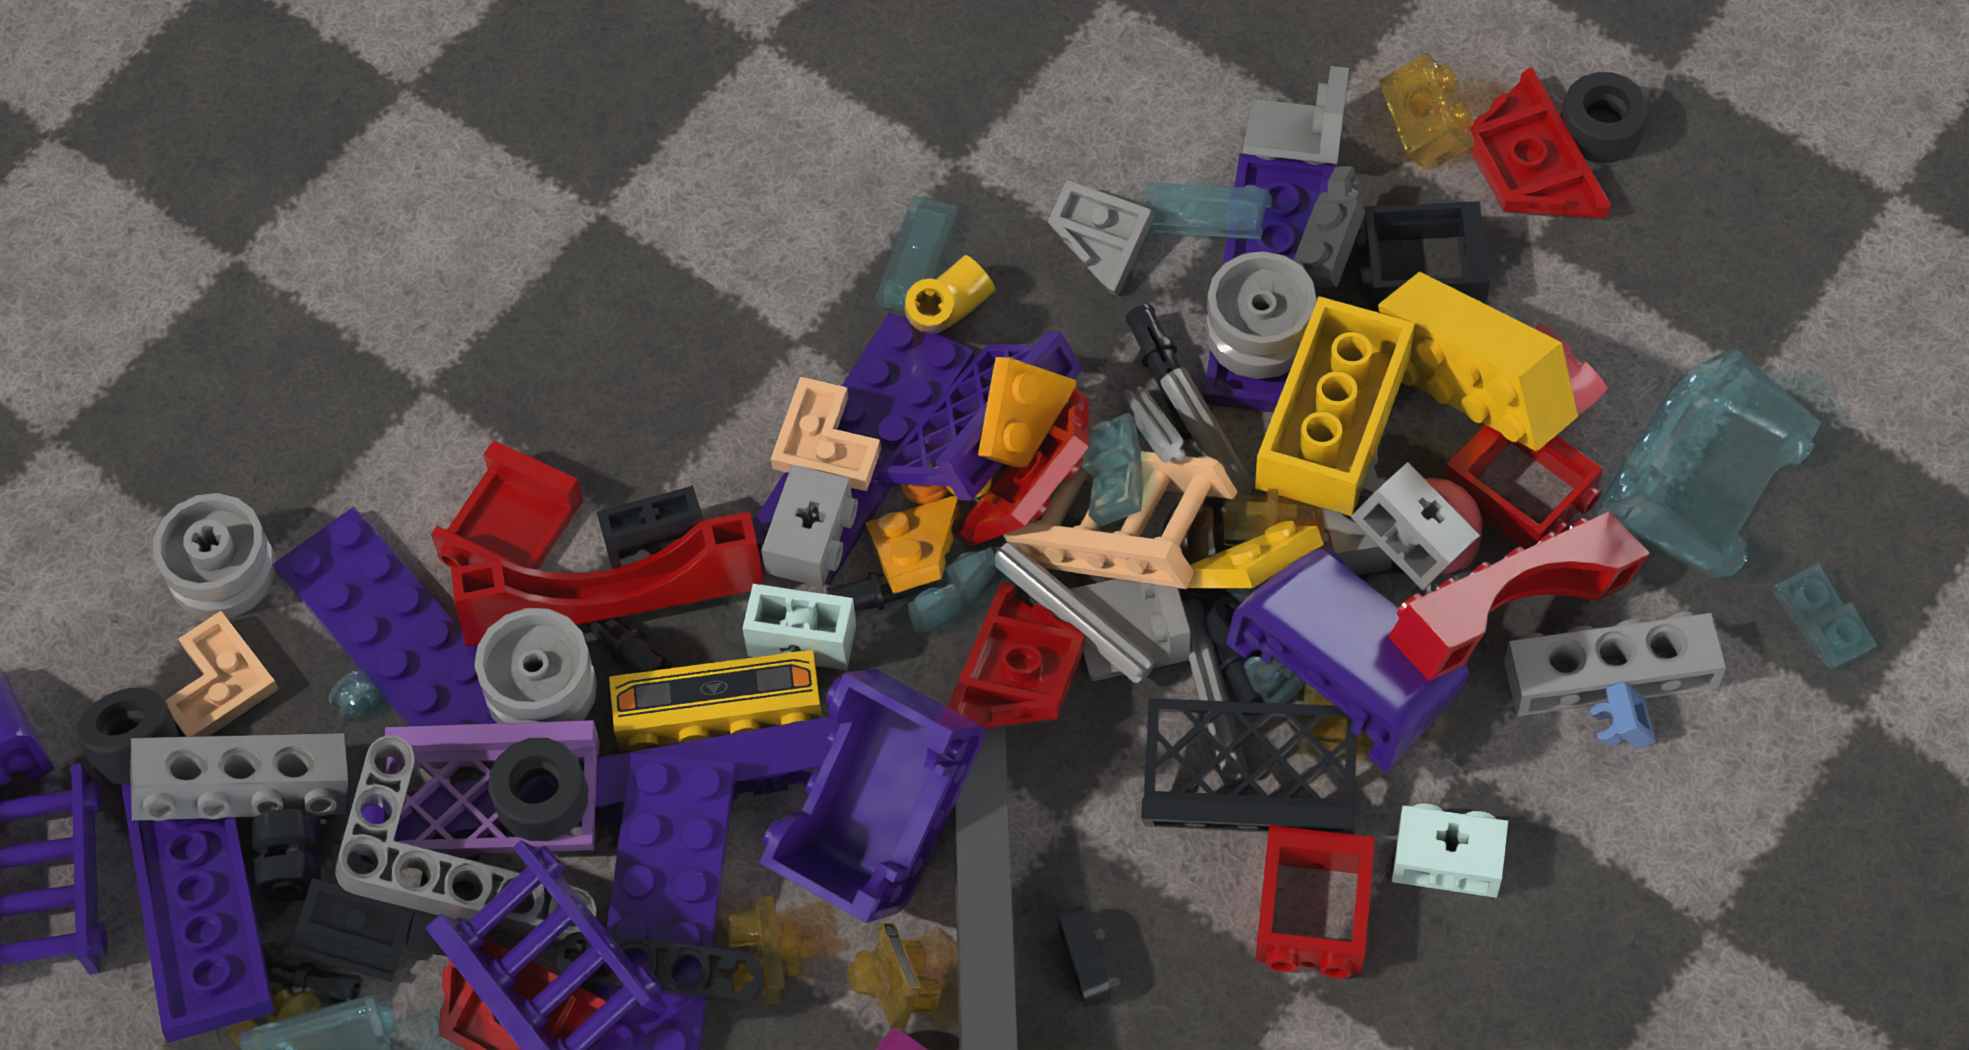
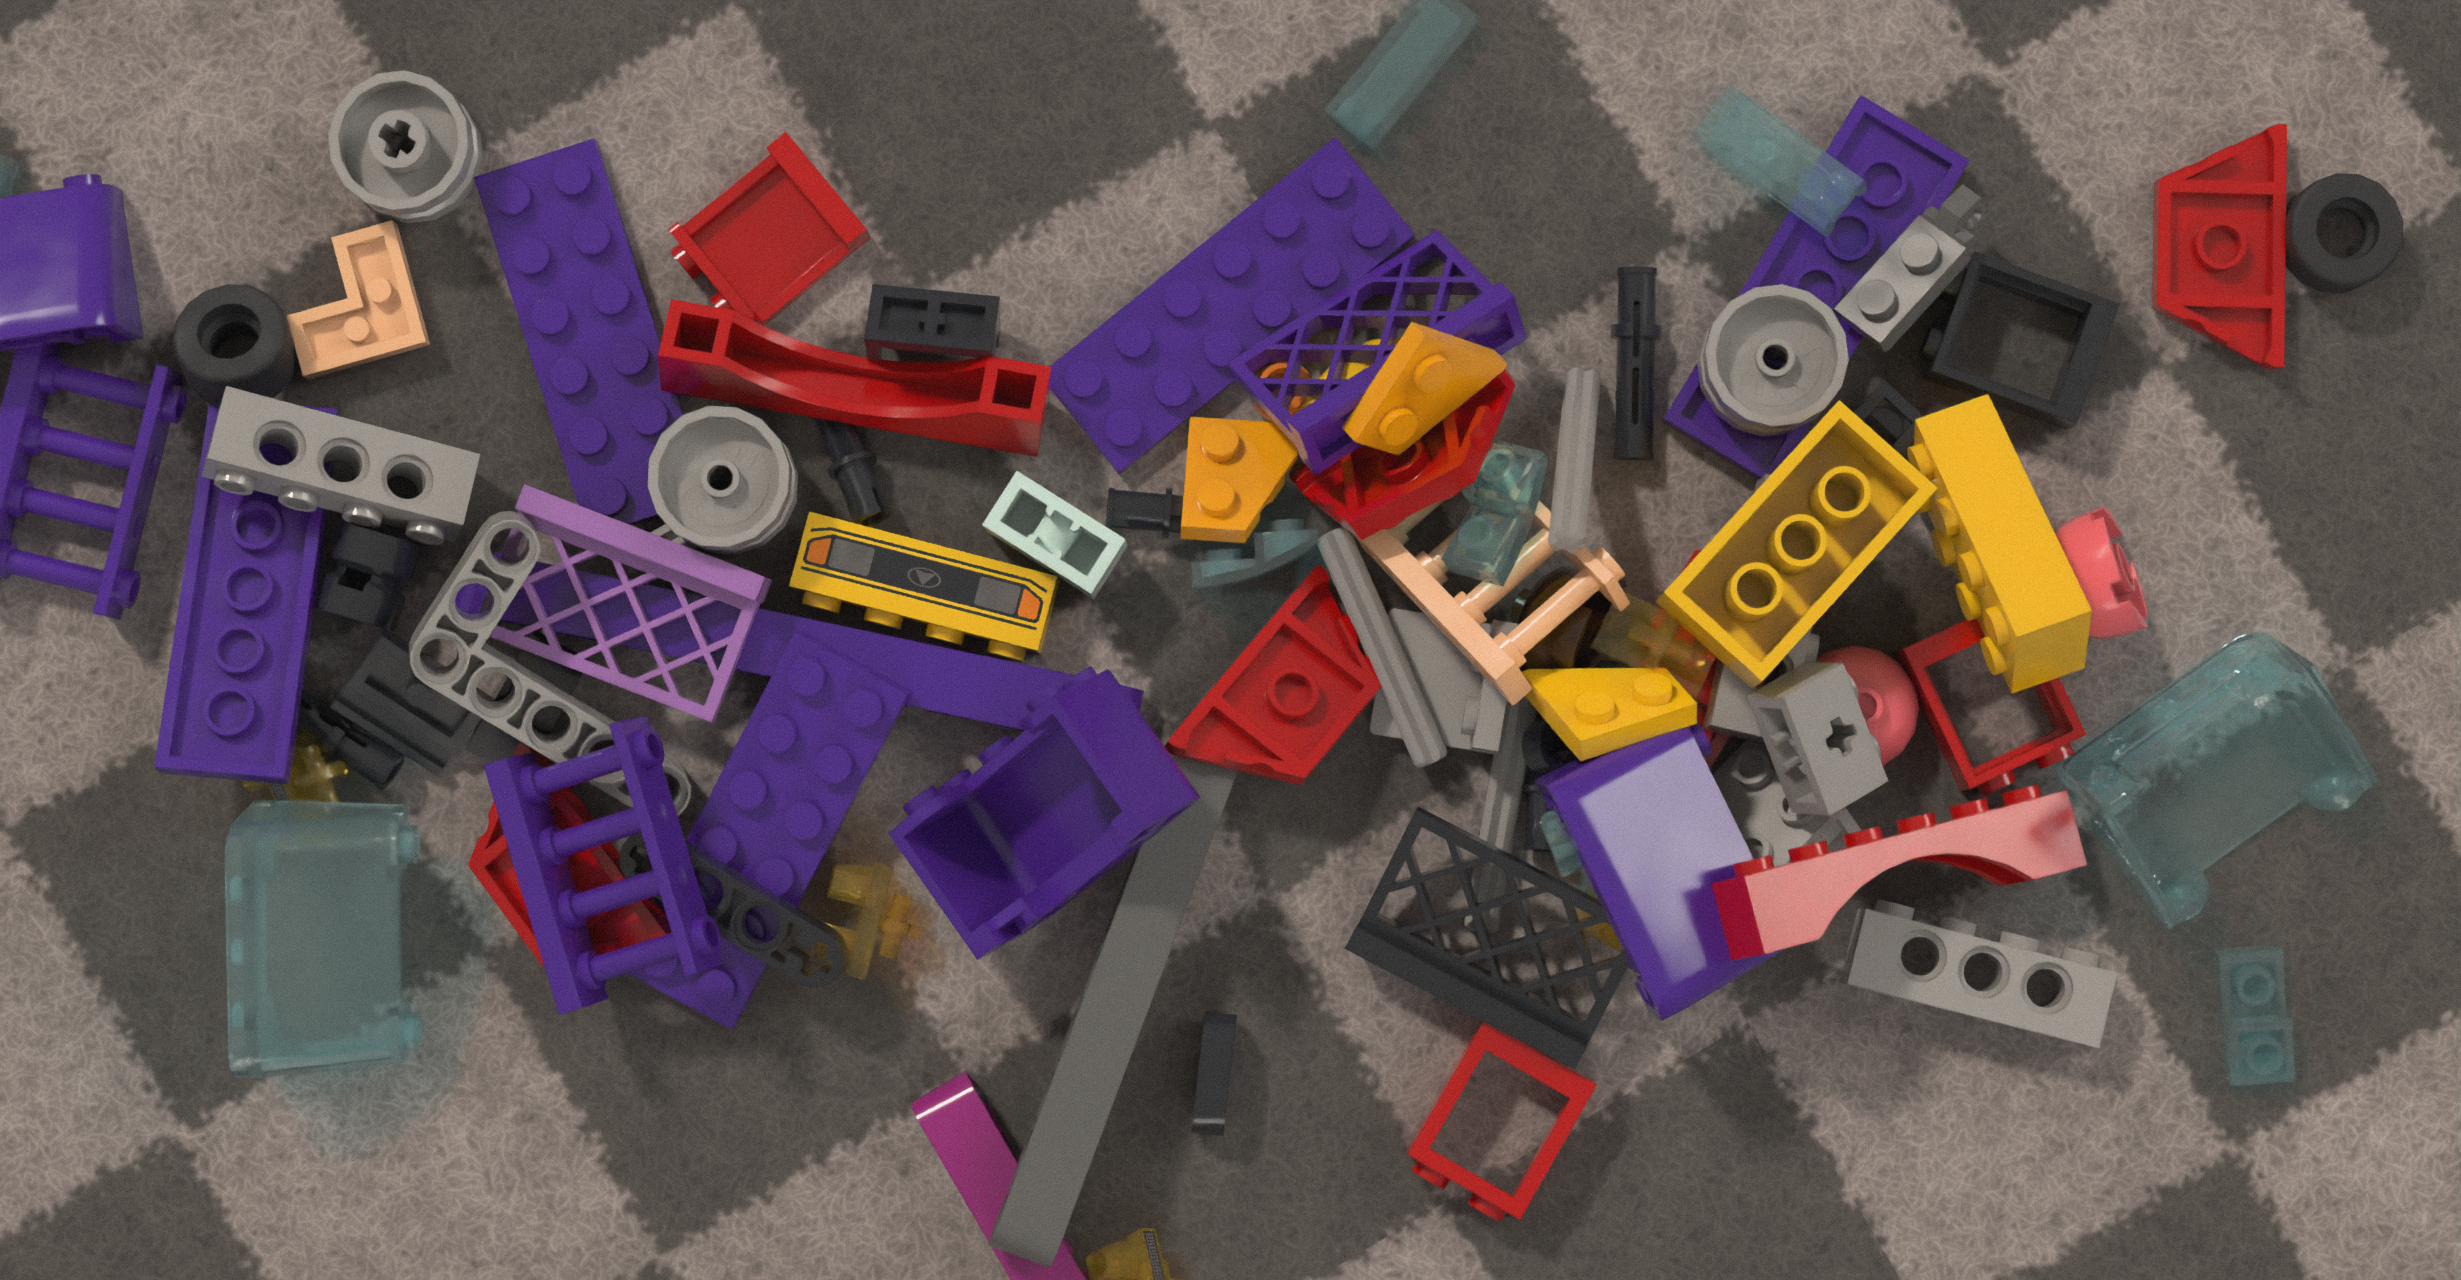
camera: 25 degrees right, 25 degrees up
(354, 695) = (512, 396): clear light blue bush -> none
(532, 759) = (632, 626): black tyre -> none
(808, 526) = (1120, 377): light grey brick -> none
(812, 438) = (1162, 303): light nougat plate -> none
(894, 977) = (984, 1016): clear yellow hips -> none
(943, 301) = (1405, 157): yellow cylinder -> none
(1101, 231) = (1640, 132): light grey wing -> none
(1205, 427) = (1642, 480): light grey axle -> none
(1299, 129) = (1950, 89): light grey bracket -> none
(1423, 856) = (1700, 1156): light aqua brick -> none
(1425, 135) = (2105, 107): clear yellow brick -> none
(1629, 716) = (1963, 1046): medium blue tile -> none

